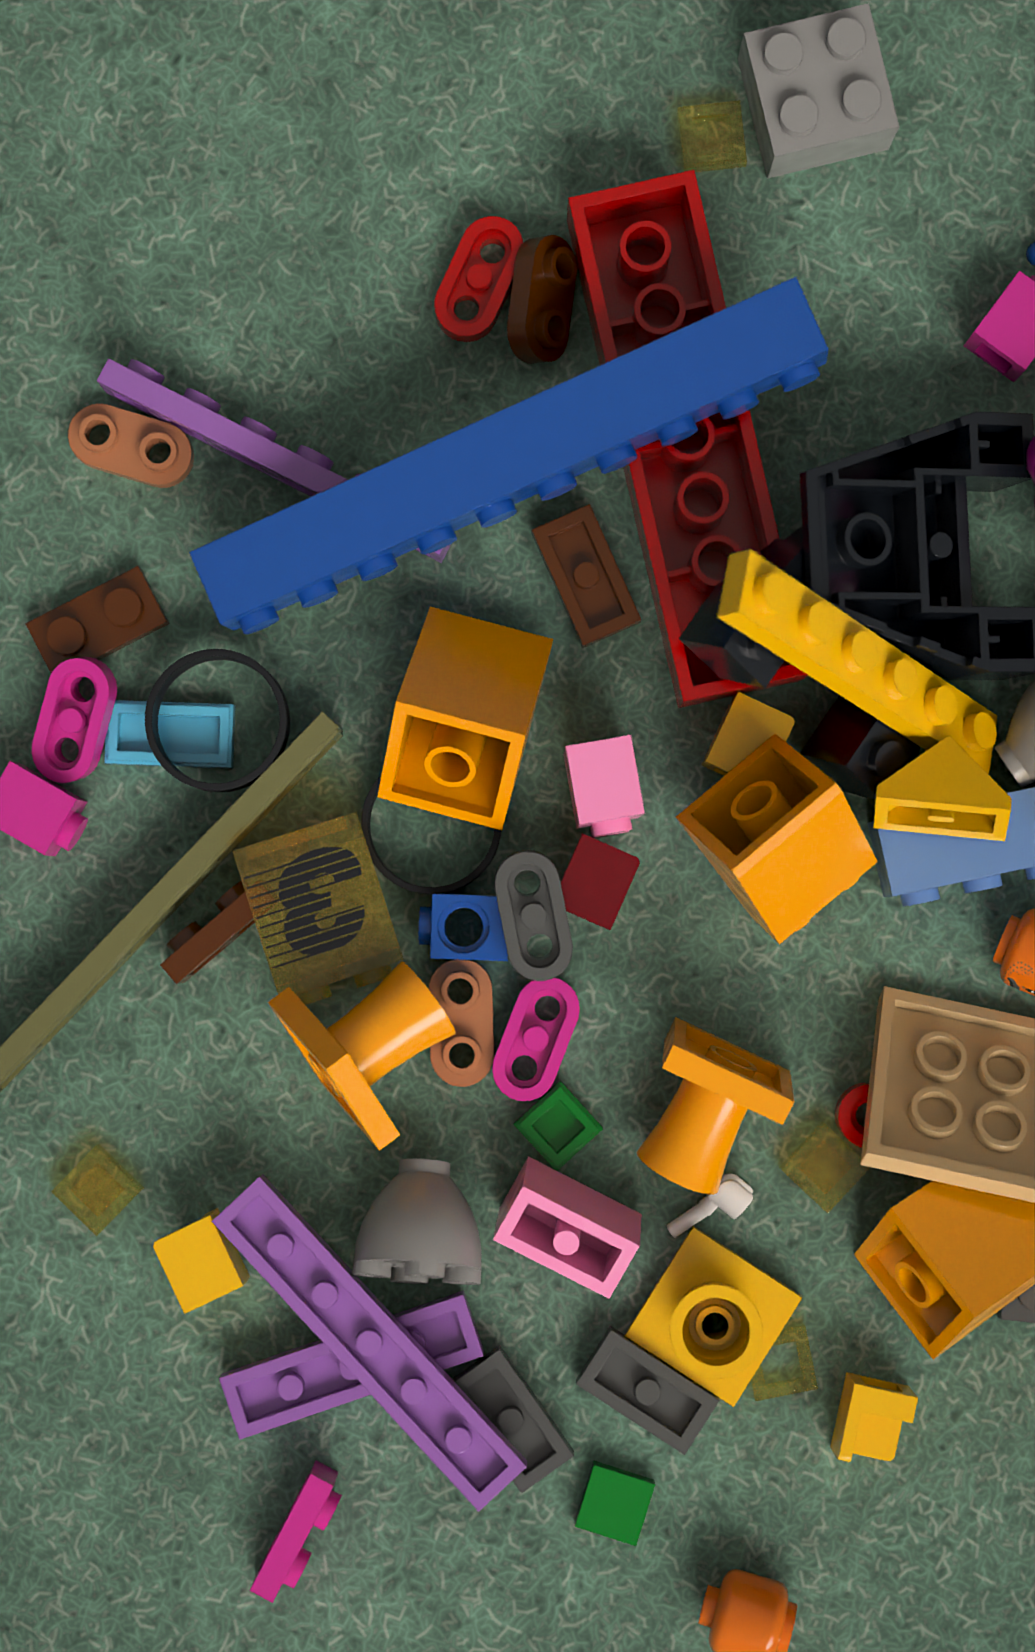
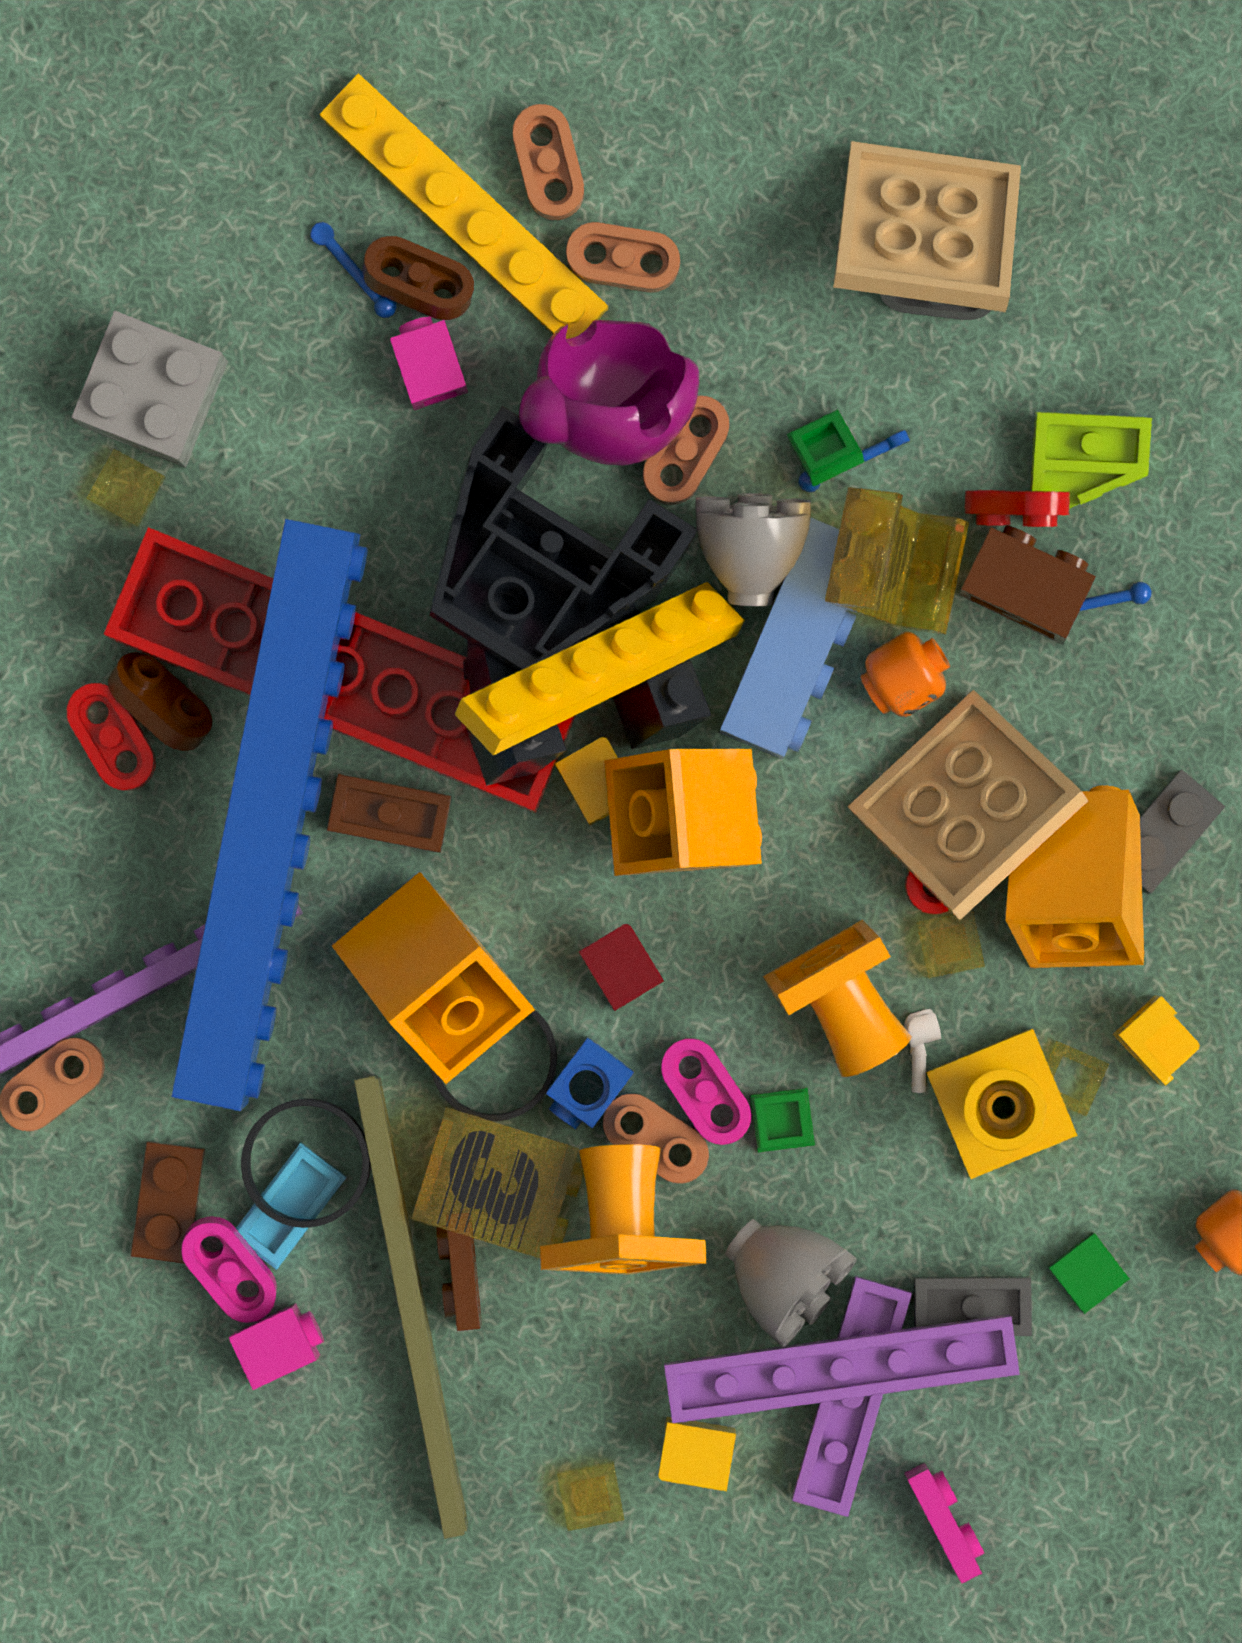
camera: 60 degrees left, 0 degrees up
(533, 914) = (612, 1030): dark grey plate -> none
(568, 1227) = (860, 1164): bright pink brick -> none
(604, 785) = (555, 911): bright pink brick -> none
(647, 1390) = (1021, 1190): dark grey plate -> none
(943, 795) = (734, 671): yellow slope -> none

